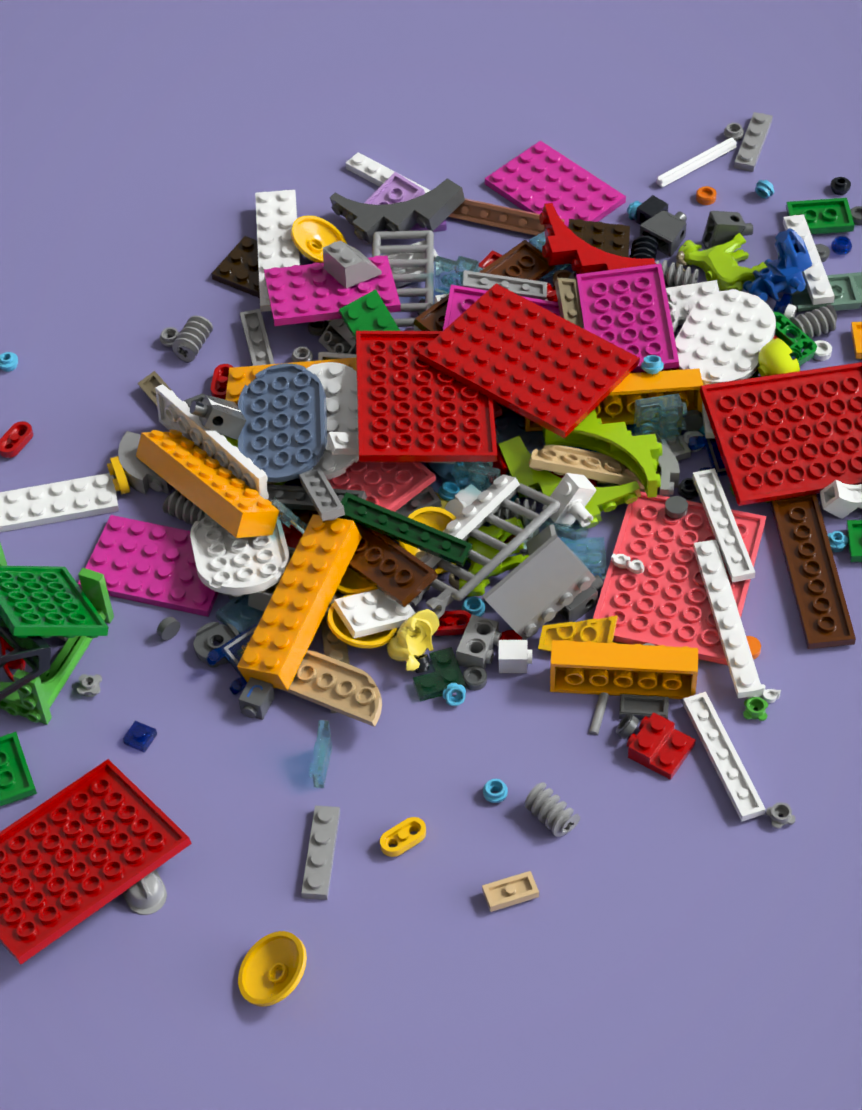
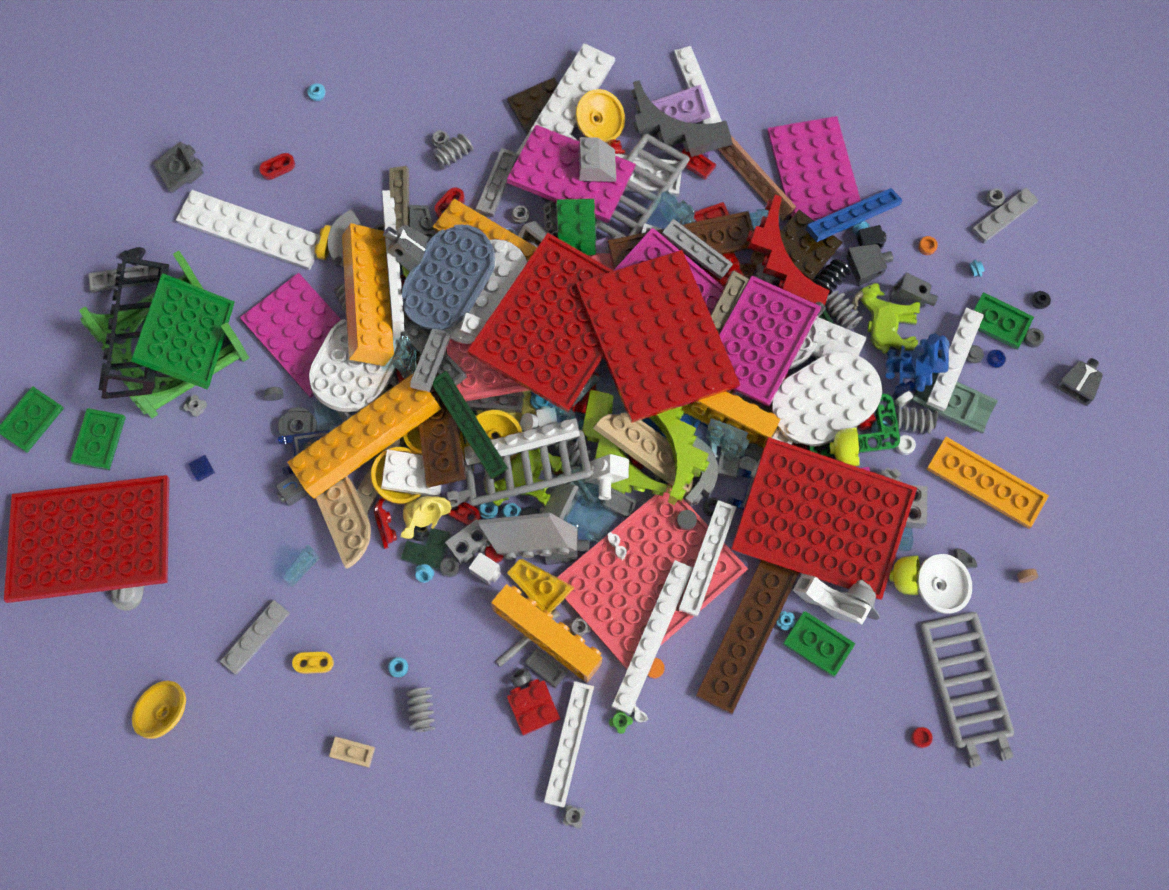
camera: 30 degrees right, 20 degrees up
(391, 682) = (382, 519): none -> red piece
(446, 235) = (699, 165): none -> red plate
(601, 530) = (619, 503): none -> dark grey tile
(622, 199) = (853, 214): none -> blue plate
(652, 364) = (745, 395): medium azure plate -> none
(696, 162) = (944, 209): white axle -> none

